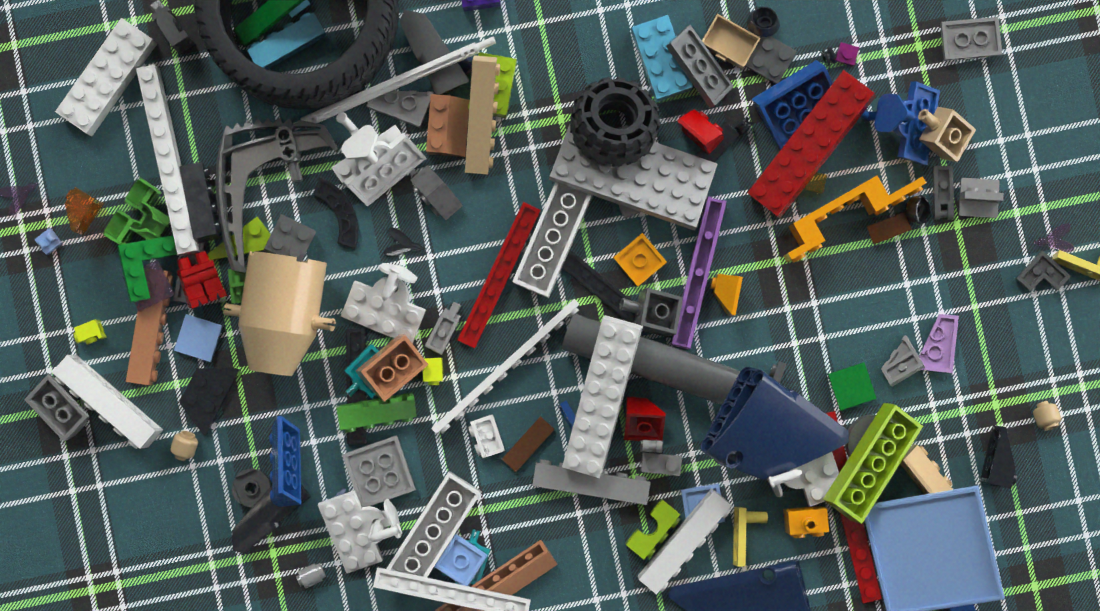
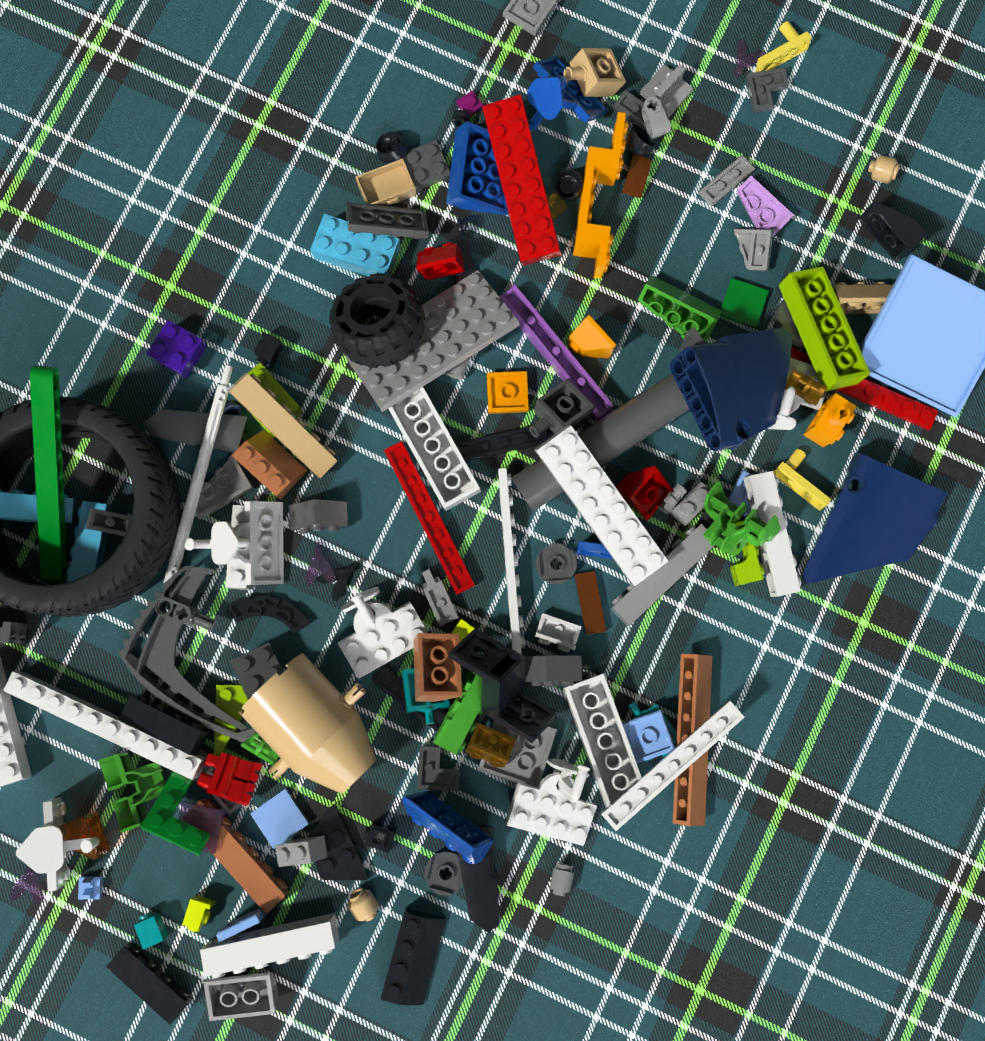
camera: 60 degrees left, 5 degrees down
(17, 336) = (149, 982): none -> black brick
(53, 308) = (151, 929): none -> teal brick
(55, 191) = (46, 850): none -> white plate
(105, 369) = (241, 924): none -> light blue tile
(175, 510) = (413, 958): none -> black slope
(187, 371) = (301, 851): none -> light grey brick
(240, 420) = (379, 837): none -> black window
(312, 423) = (431, 775): none -> dark grey plate
(313, 47) = (108, 522): none -> dark grey plate
(365, 450) = (490, 746): none -> pearl gold bracket
(401, 220) = (319, 563): none -> clear purple piece
(415, 425) = (503, 685): none -> black bracket
(456, 455) = (554, 670): none -> dark grey brick
(531, 55) = (268, 349): none -> black window
(538, 385) = (563, 555): none -> dark grey plate
(652, 506) = (726, 534): none -> bright green piece
(806, 342) = (678, 308): none -> bright green wedge
(813, 482) = (805, 387): none -> pearl gold hips
(840, 180) = (568, 184): none -> black hair
(942, 210) = (655, 121): none -> light grey piece
(942, 300) = (726, 181): none -> light grey tile

